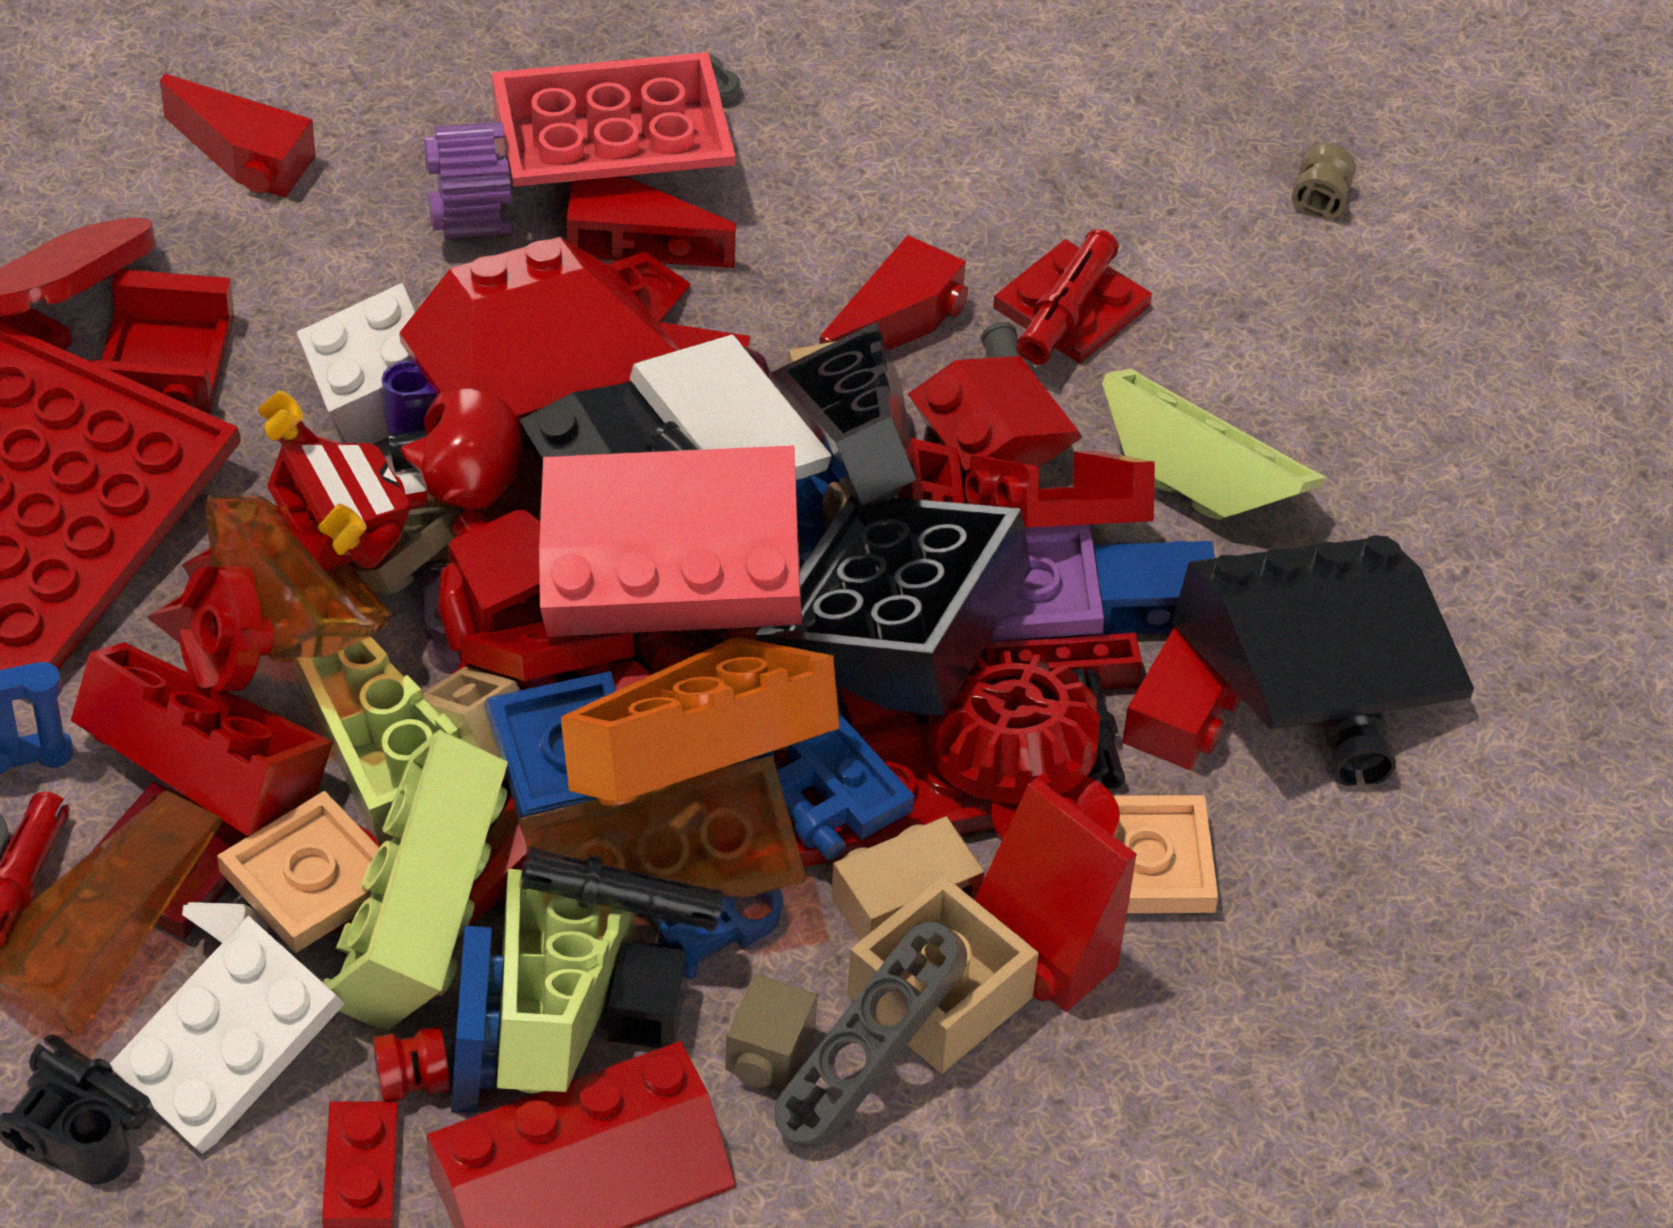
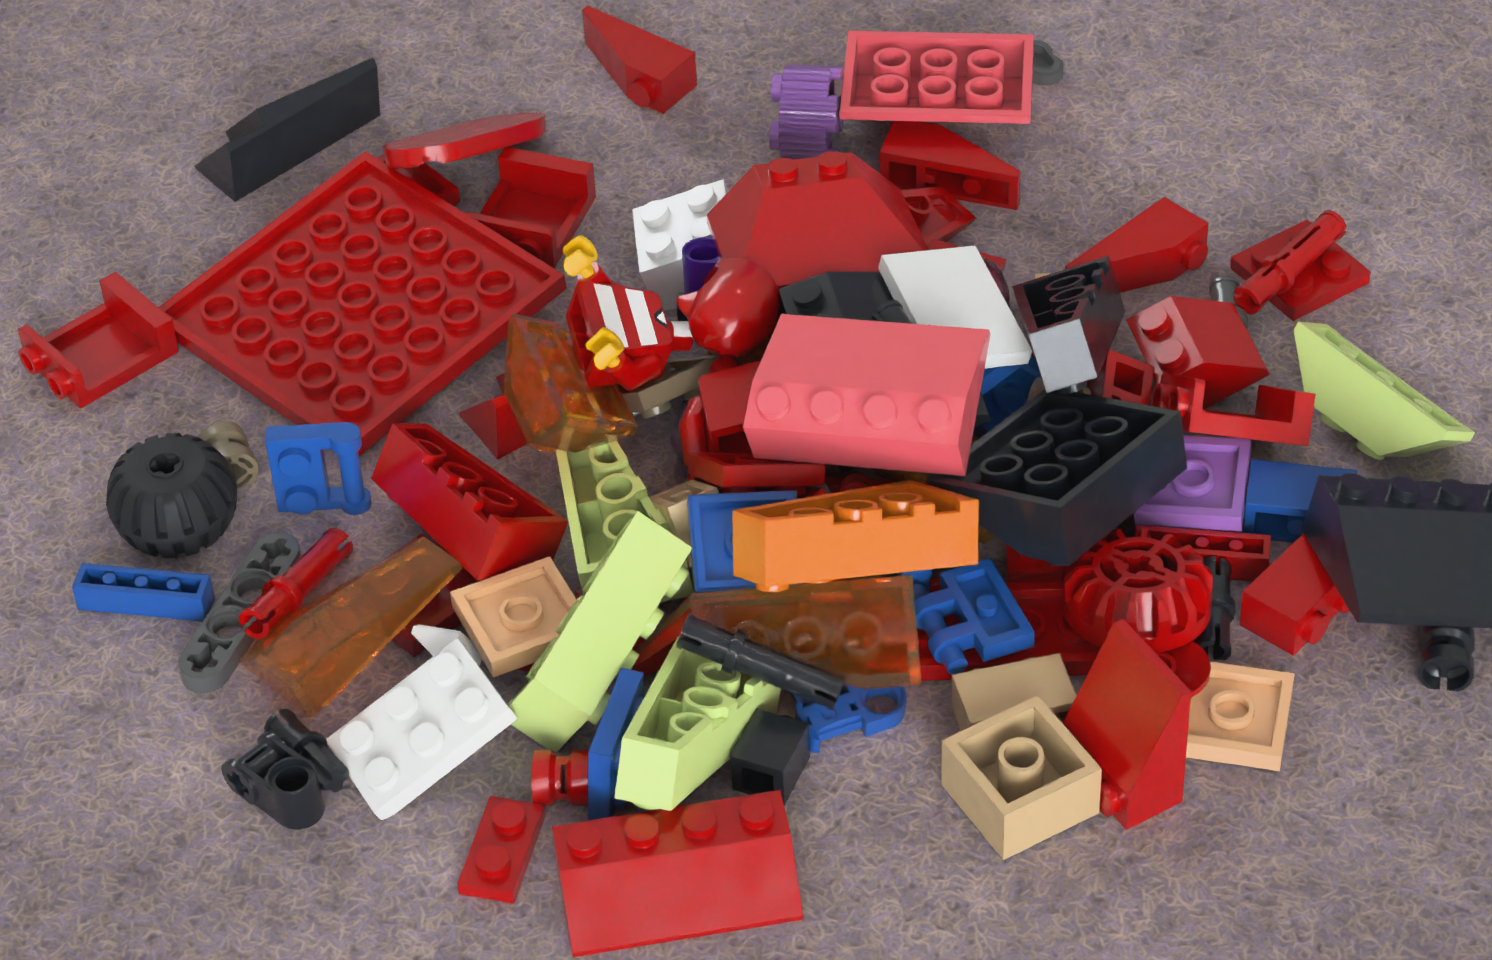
camera: 20 degrees right, 5 degrees down
(225, 628) = (501, 418): red plate -> none
(770, 1033) = (864, 801): dark tan brick -> none
(862, 1027) = (946, 818): dark grey beam -> none

